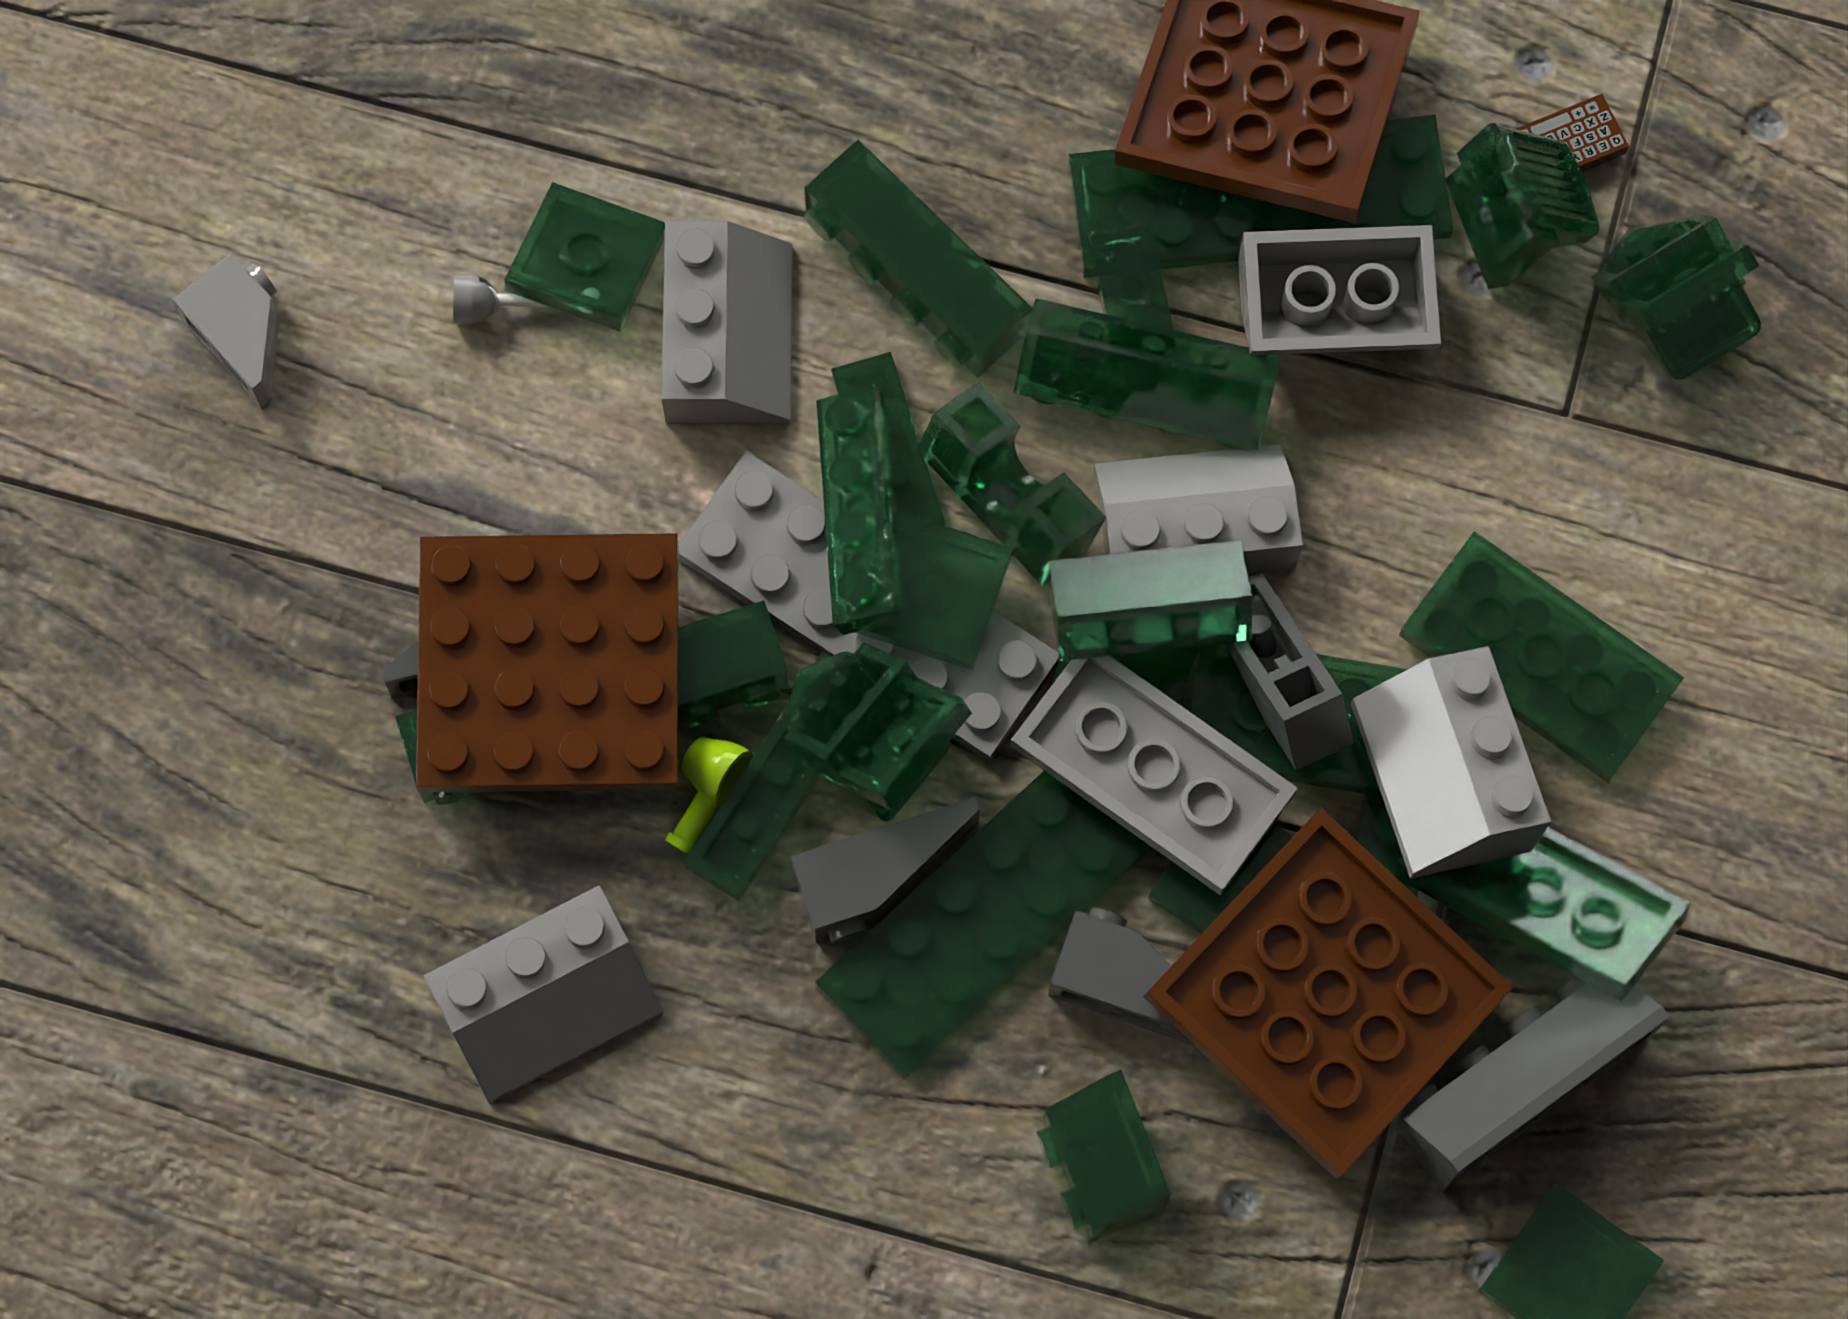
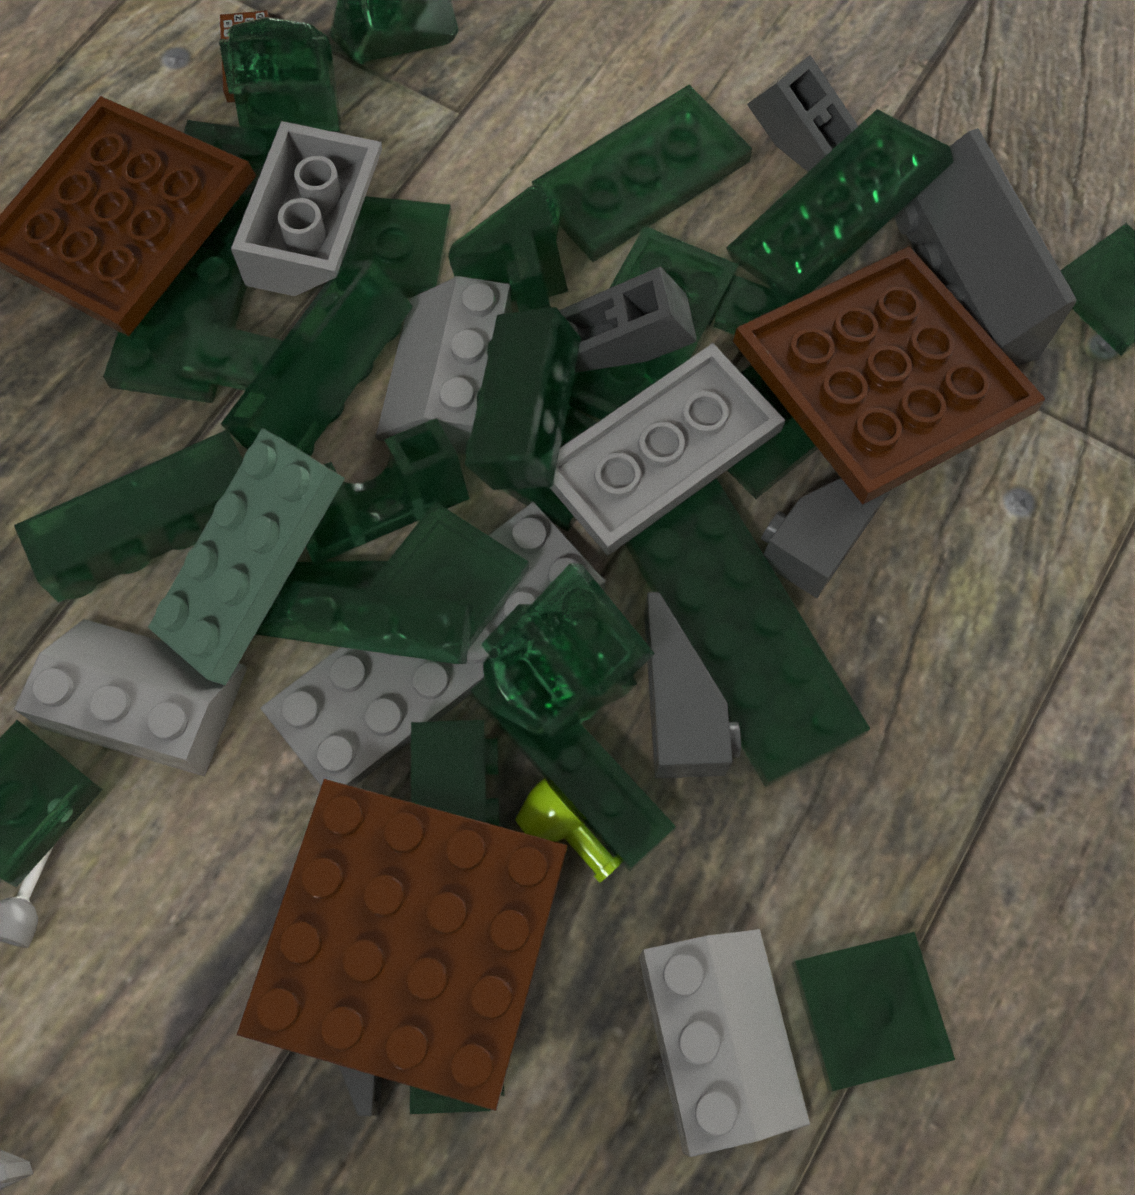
camera: 75 degrees left, 5 degrees down
(612, 1140) = (872, 1011): none -> clear green tile
(890, 376) = (244, 555): none -> sand green plate
(1103, 1158) = (988, 575): clear green slope -> none
(1345, 409) = (404, 240): none -> clear green tile
(1350, 548) = (516, 249): none -> clear green piece
(1451, 764) = (729, 224): light grey slope -> none
(1680, 826) = (803, 114): none -> dark grey slope

